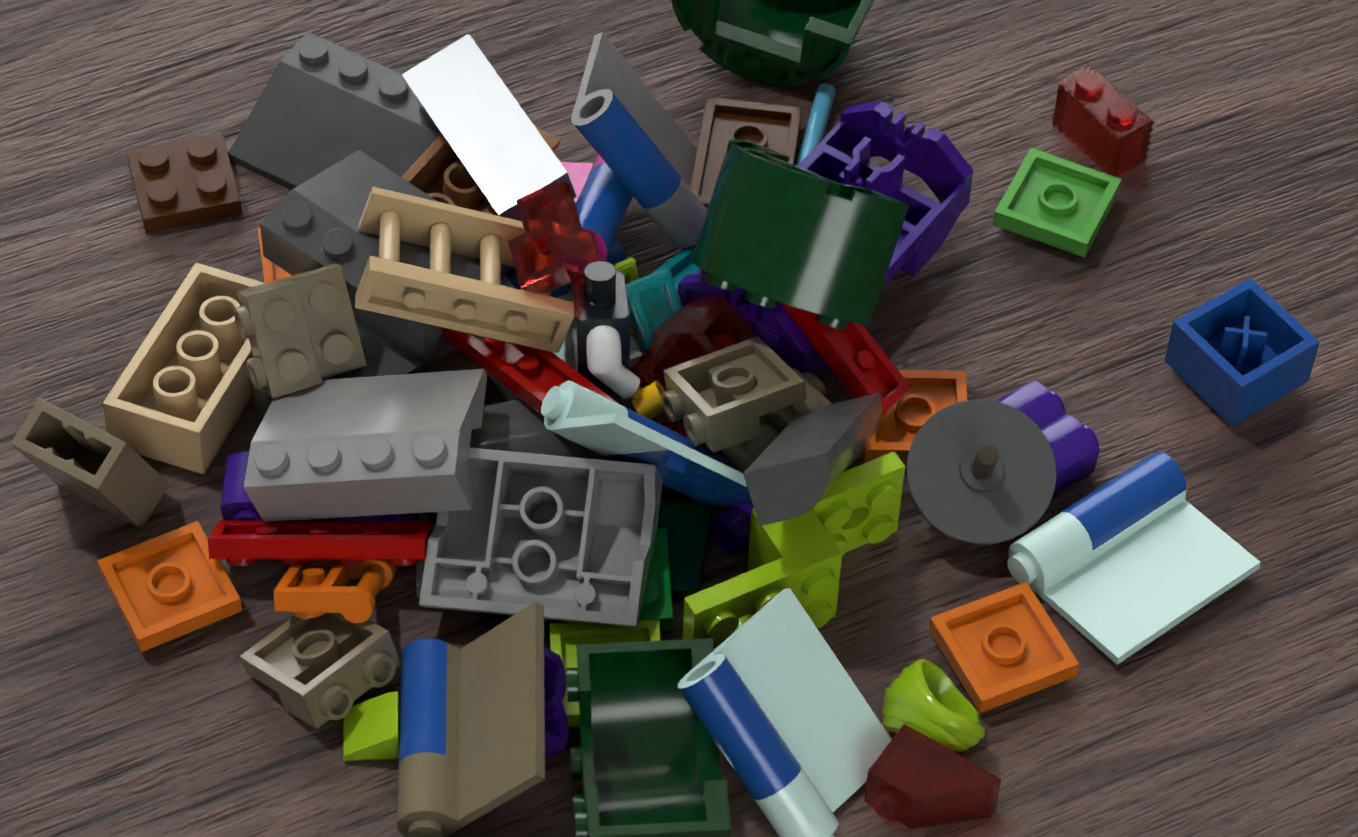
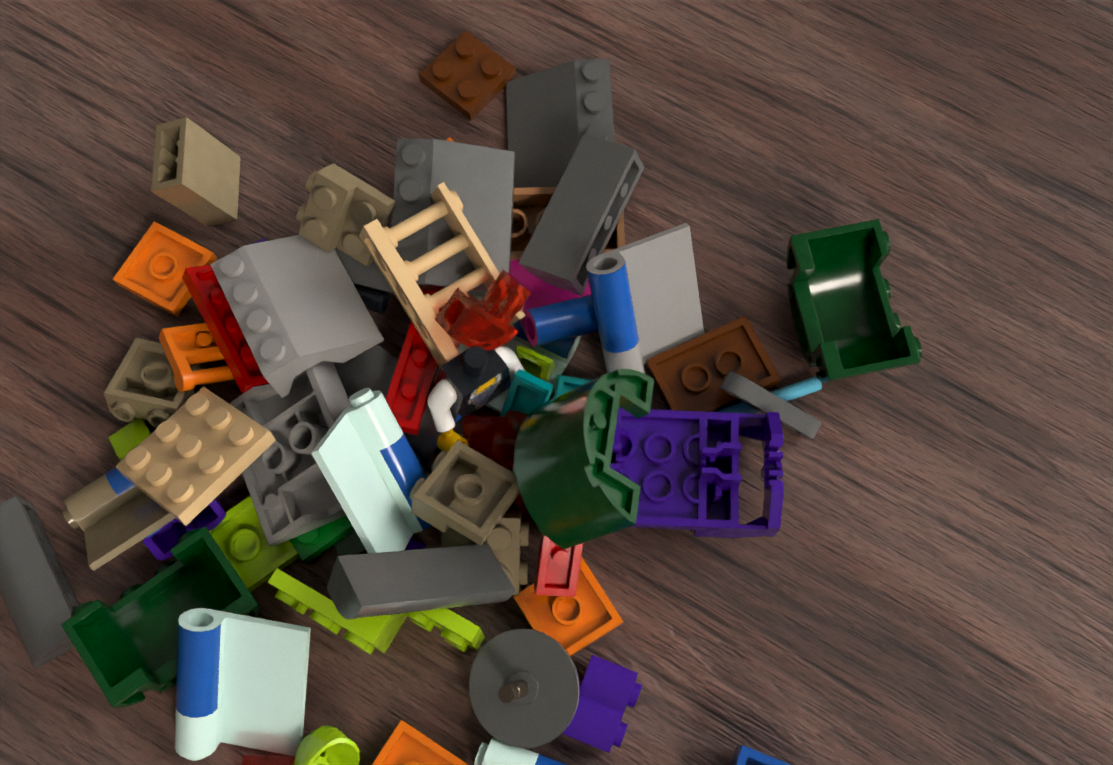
camera: 60 degrees right, 20 degrees up
(186, 376) = (280, 170): tan brick -> none
(474, 621) = (195, 455): none -> tan plate
(807, 126) = (768, 402): none -> dark grey beam
(1057, 202) = (824, 593): bright green plate -> none
(1102, 121) = (920, 581): clear red brick -> none

